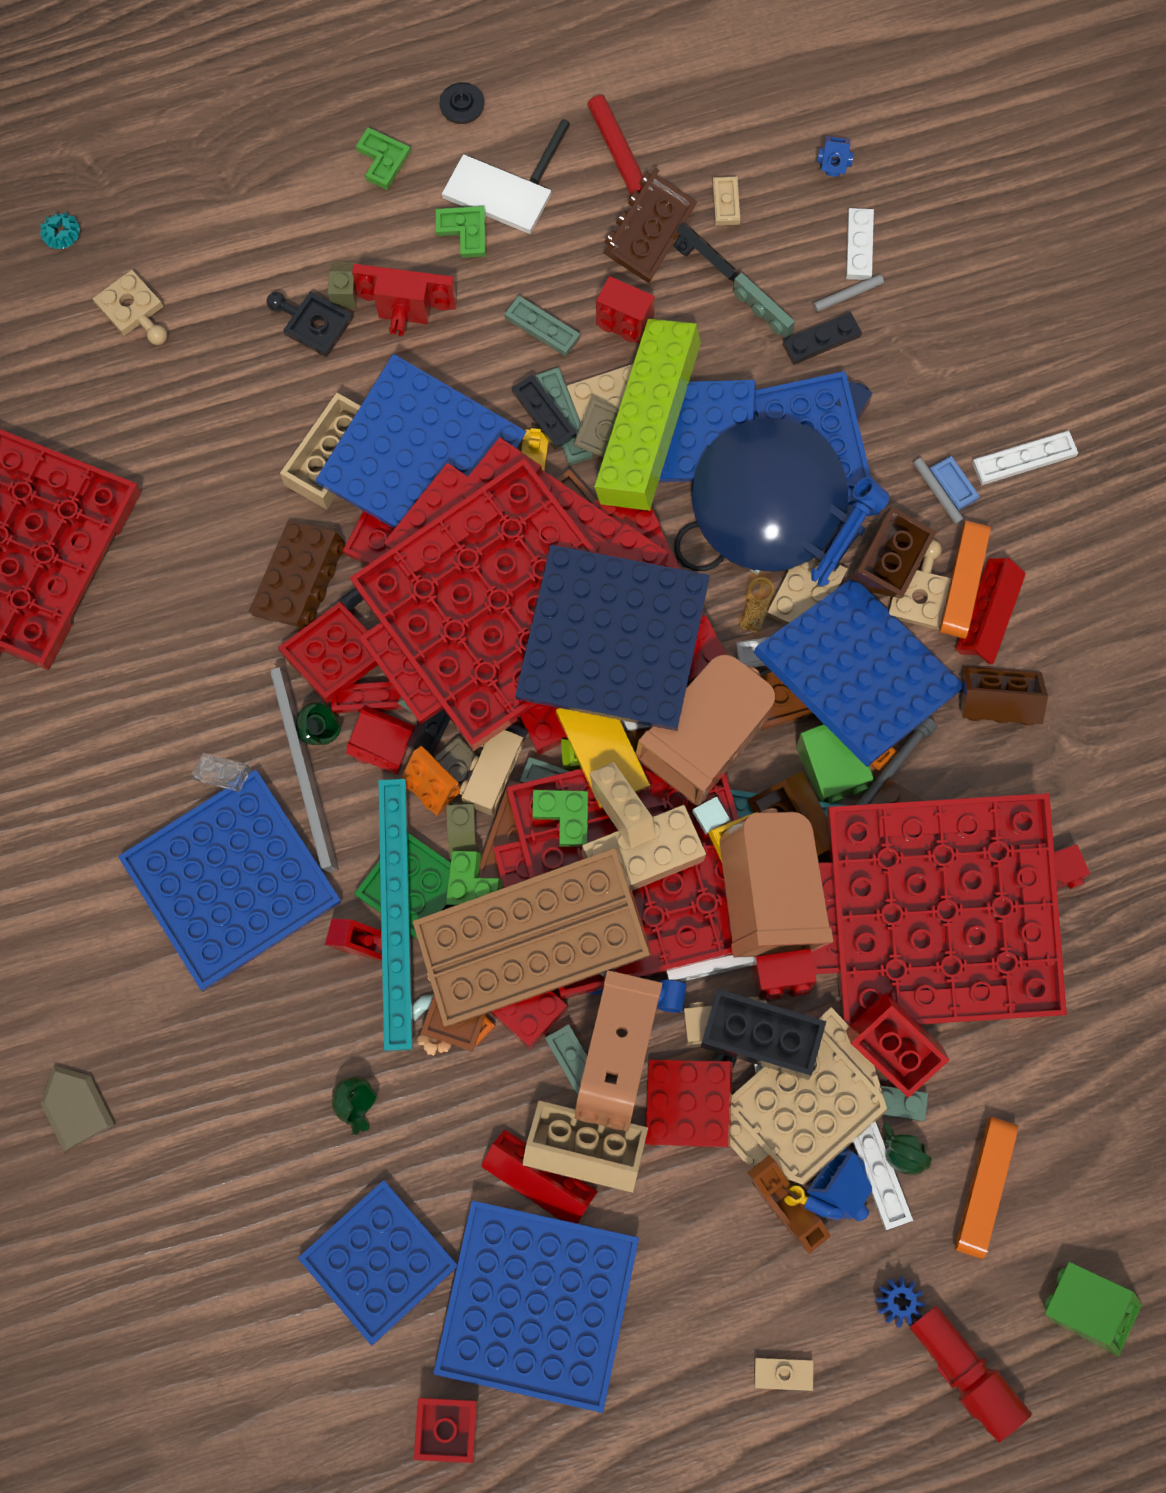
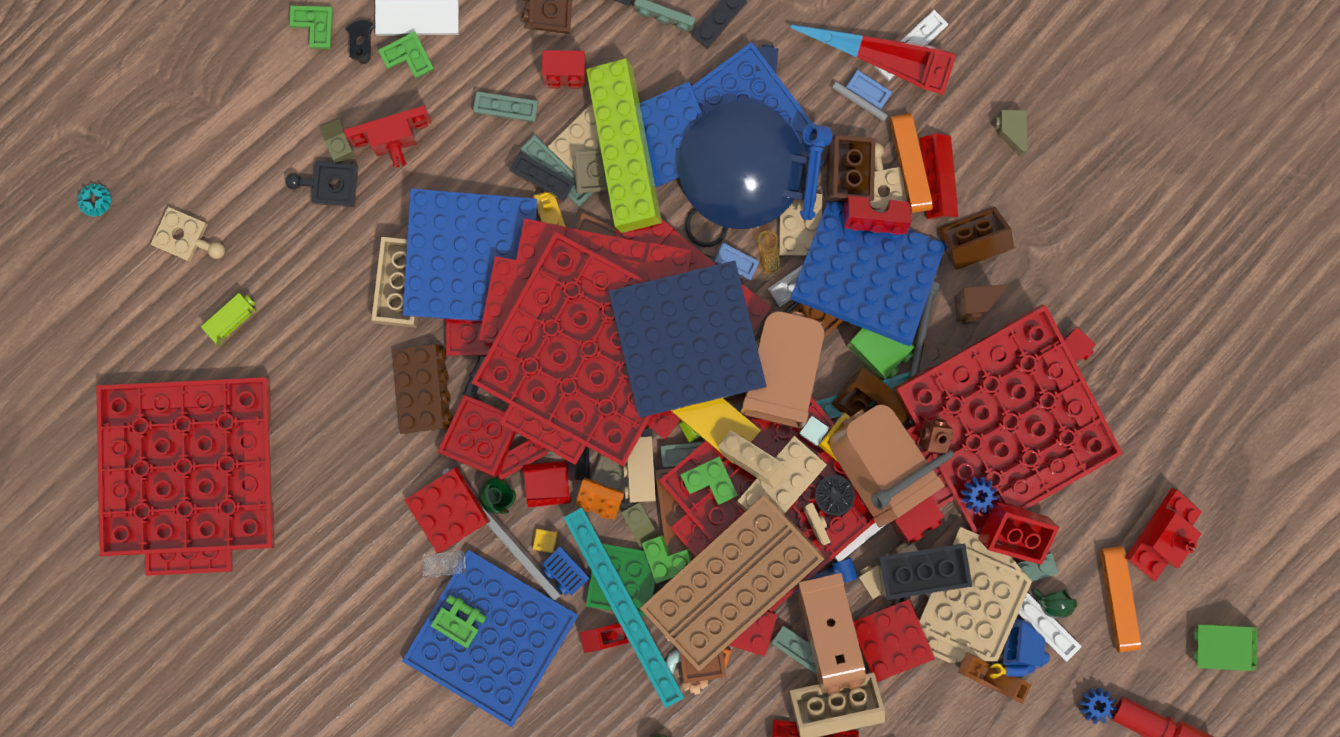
camera: 30 degrees left, 10 degrees up
(132, 408) = (229, 318): none -> lime window
(195, 845) = (455, 627): none -> bright green plate
(255, 714) = (447, 510): none -> red plate
(347, 802) = (545, 540): none -> yellow tile
(351, 843) = (565, 571): none -> blue slope
(418, 203) = (362, 51): none -> black piece
(663, 919) = (817, 524): none -> tan plate
(699, 898) = (834, 495): none -> black wheel
(718, 601) = (745, 264): none -> medium blue tile
(749, 913) = (882, 498): none -> dark grey piece
(850, 879) = (936, 435): none -> copper brick
(875, 984) = (972, 491): none -> blue gear
(880, 608) = (860, 216): none -> red arch
(972, 759) = (974, 302): none -> reddish brown slope
(1019, 473) = (915, 63): none -> red plate
(1075, 1137) = (1166, 536): none -> red brick
(1100, 595) = (1013, 129): none -> olive slope

